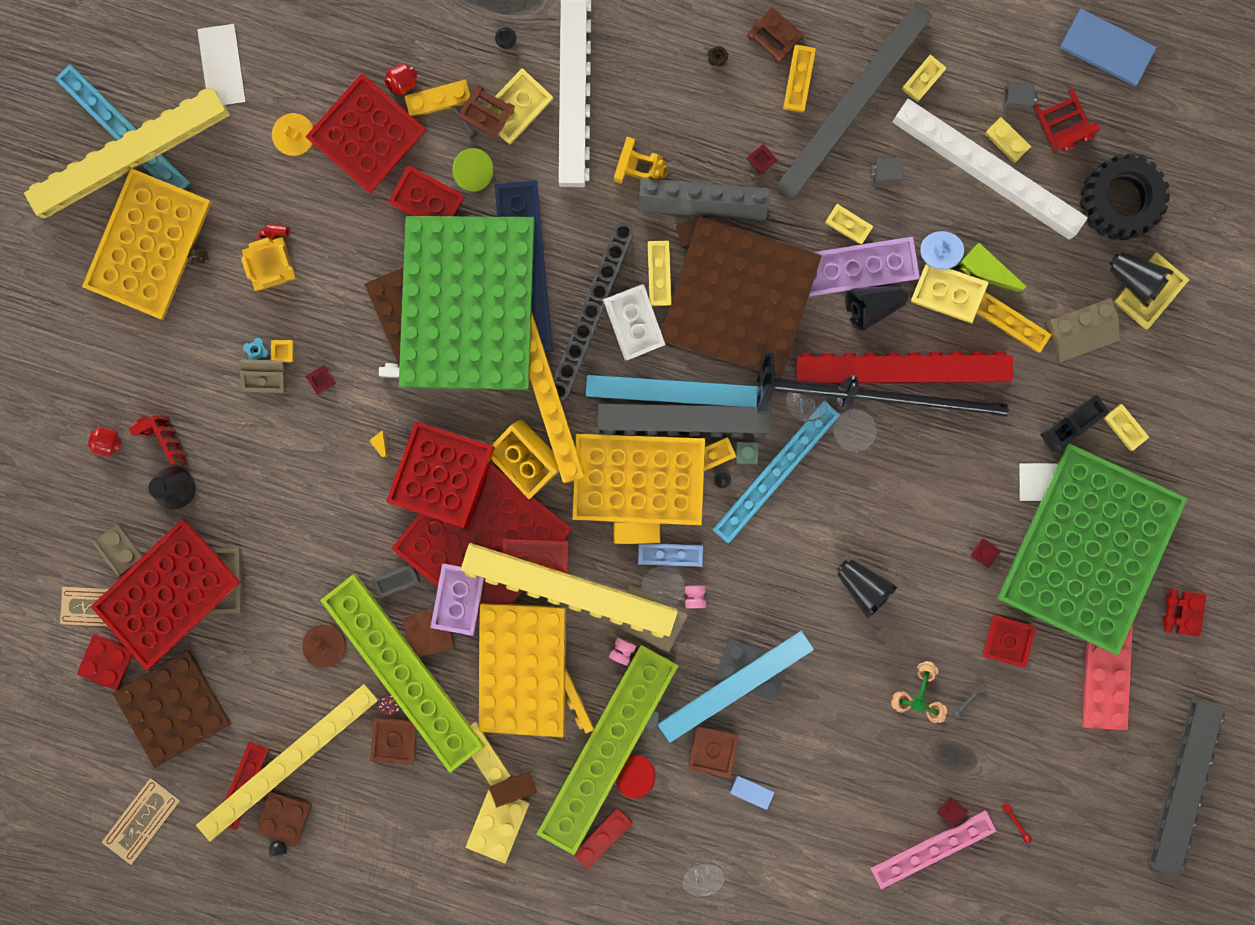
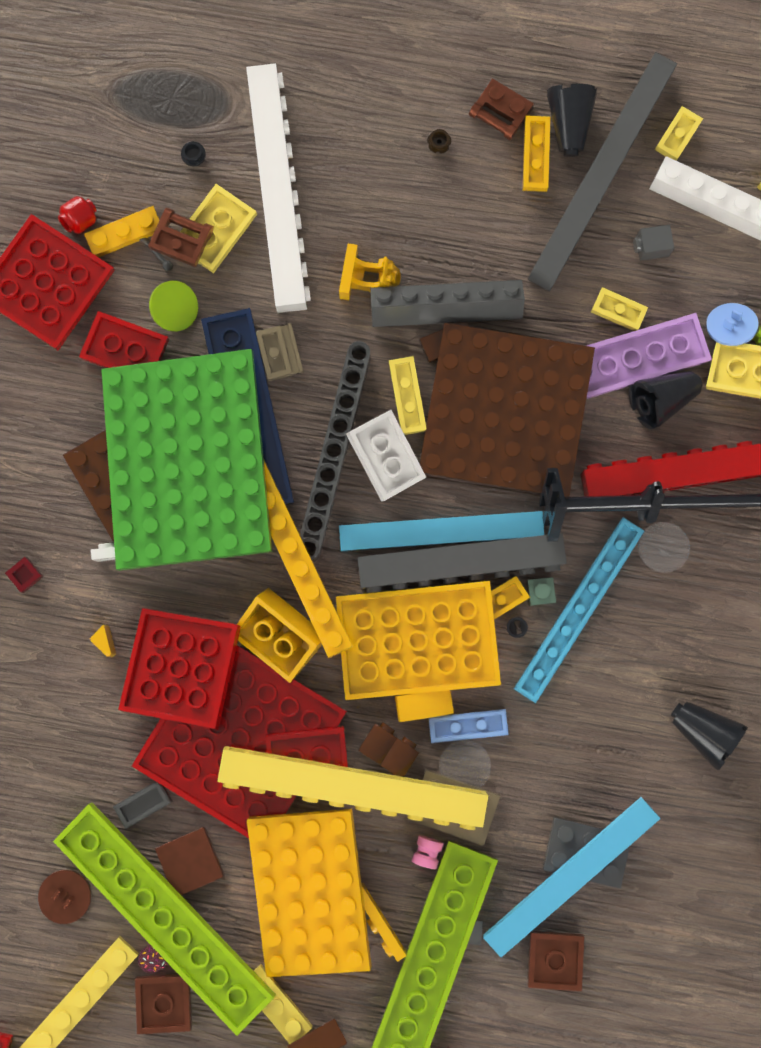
camera: 10 degrees left, 5 degrees down
(457, 601) = (218, 820): lavender plate -> none
(557, 221) = (279, 352): none -> dark tan plate
(602, 565) = (388, 750): none -> reddish brown brick
(636, 777) = (467, 1007): red piece -> none
(695, 596) = (506, 773): bright pink wheel -> none
(752, 792) = (610, 1005): light blue piece -> none
(761, 159) = (507, 249): dark red plate -> none
(806, 407) = (604, 526): clear piece -> none
(833, 51) = (571, 115): none -> black cone

